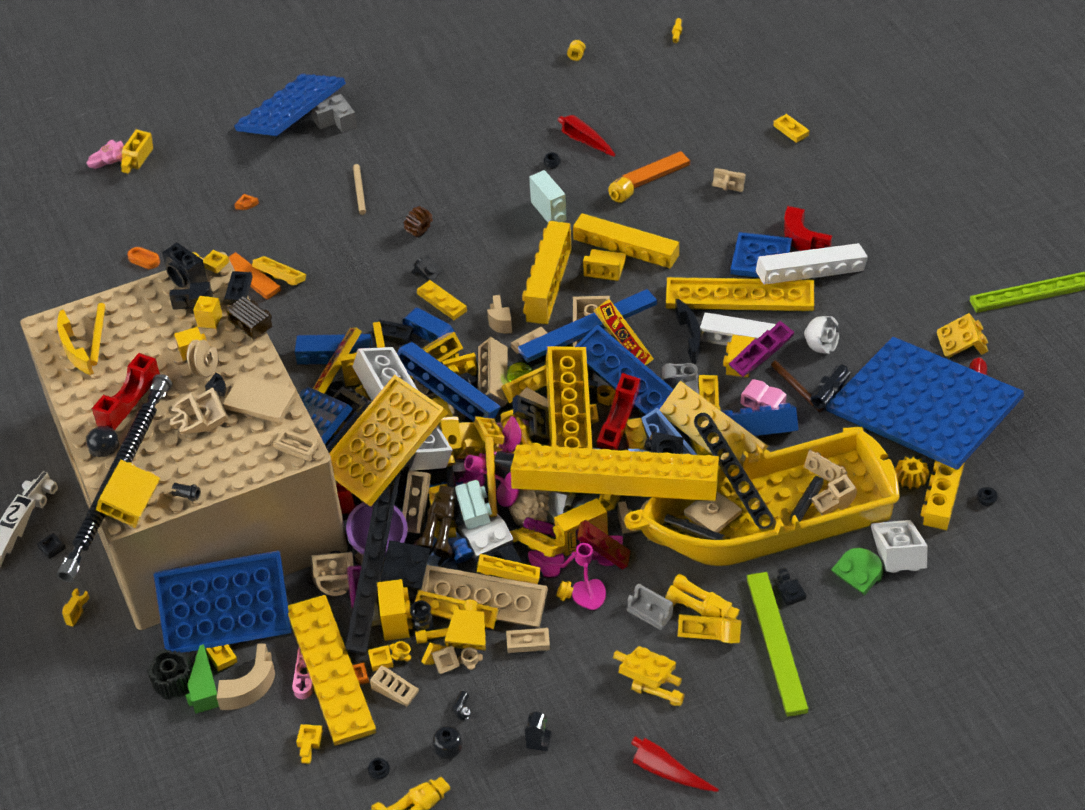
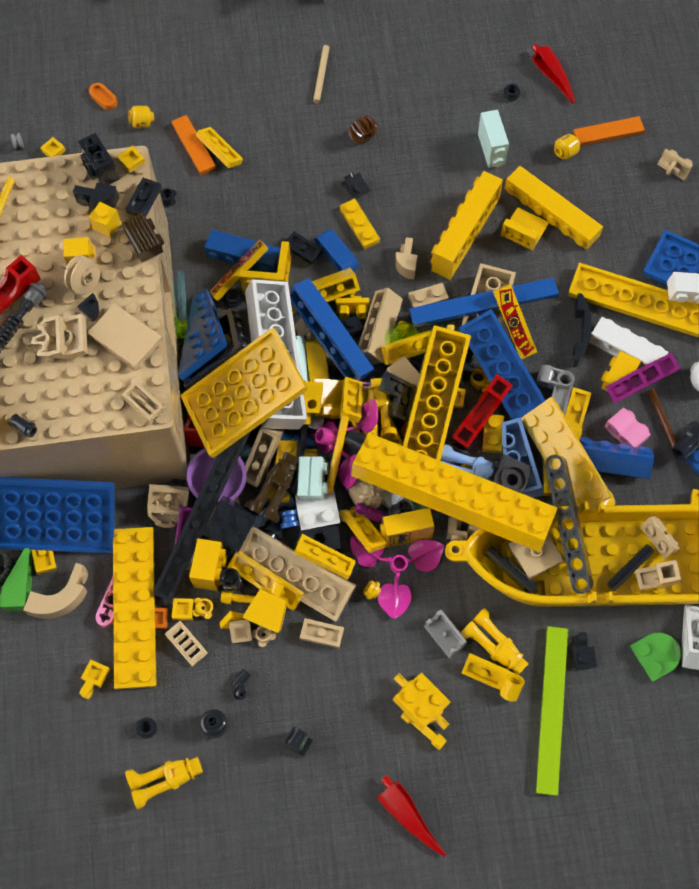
camera: 15 degrees right, 20 degrees up
(246, 202) = (213, 59): orange tile -> none
(604, 544) = (422, 555): dark red plate -> none

